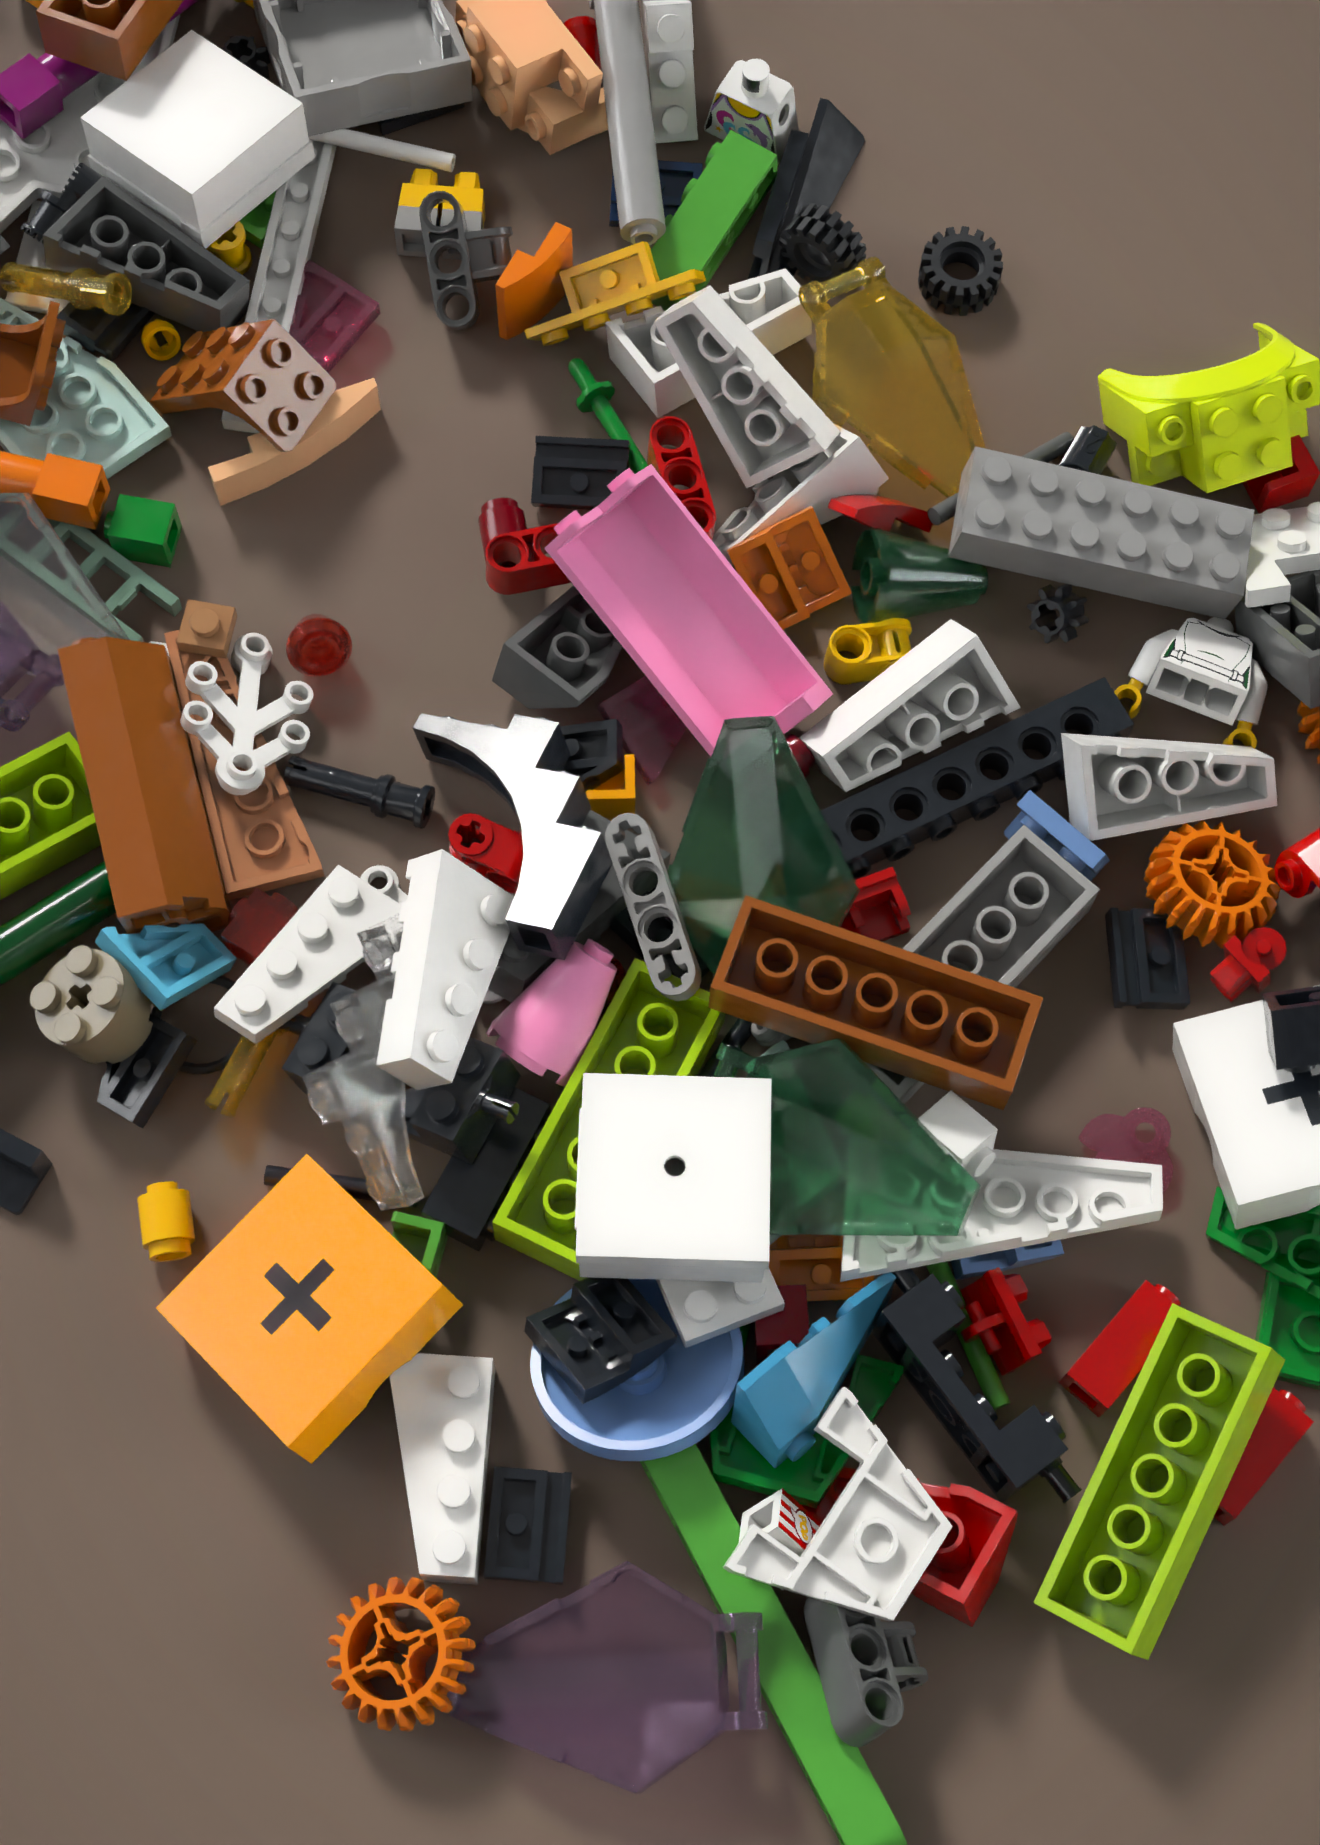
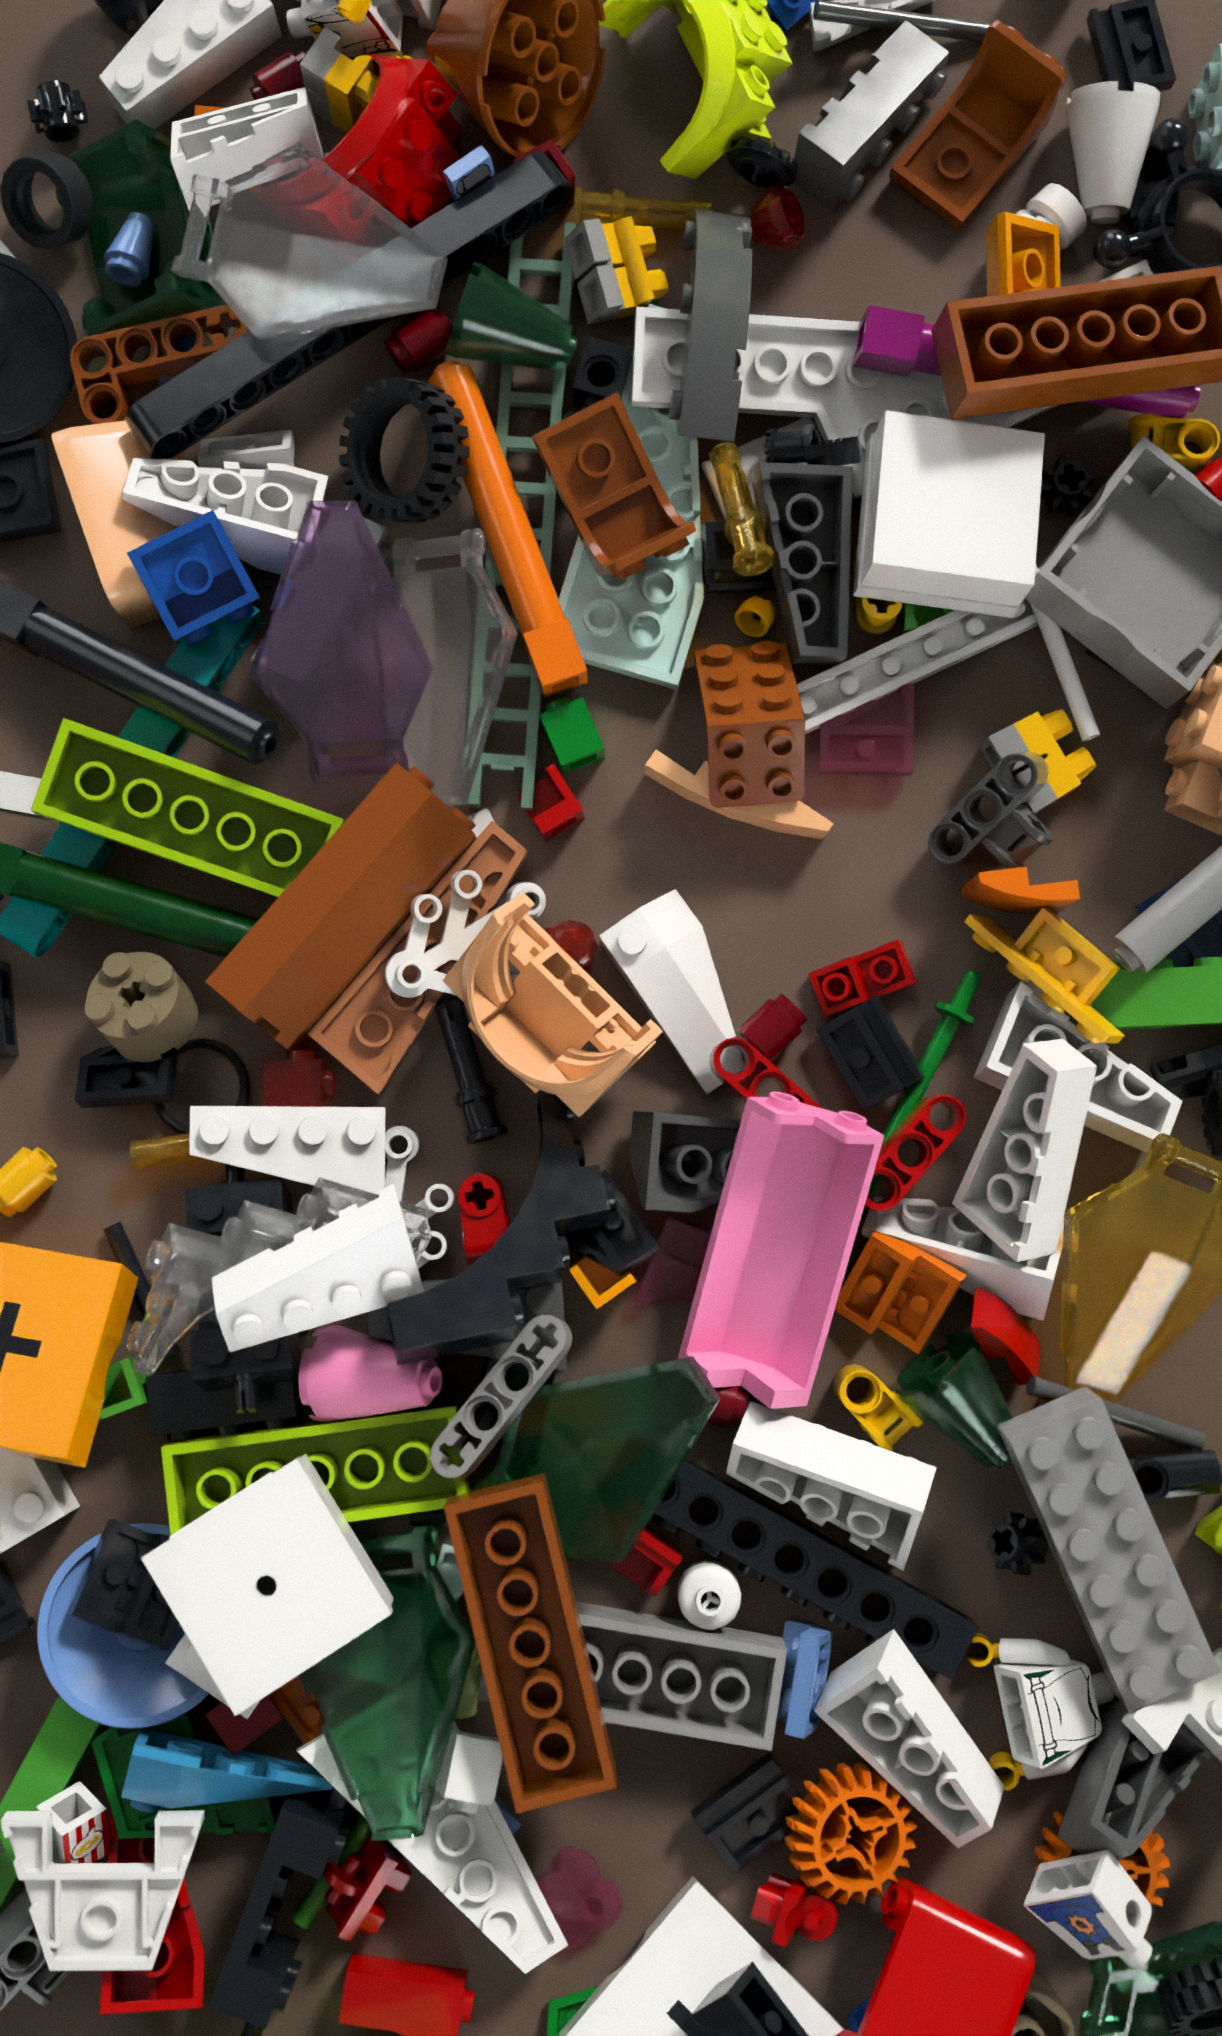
camera: 60 degrees right, 15 degrees up
(168, 960) = (215, 1034): medium azure wing -> none
(188, 576) = (554, 805): none -> red panel
(206, 628) = (516, 853): medium nougat plate -> none
(358, 675) = (547, 1013): none -> light nougat piece
(402, 586) = (674, 976): none -> white wedge
(513, 449) = (862, 977): none -> red slope
(937, 870) = (703, 1578): none -> white head

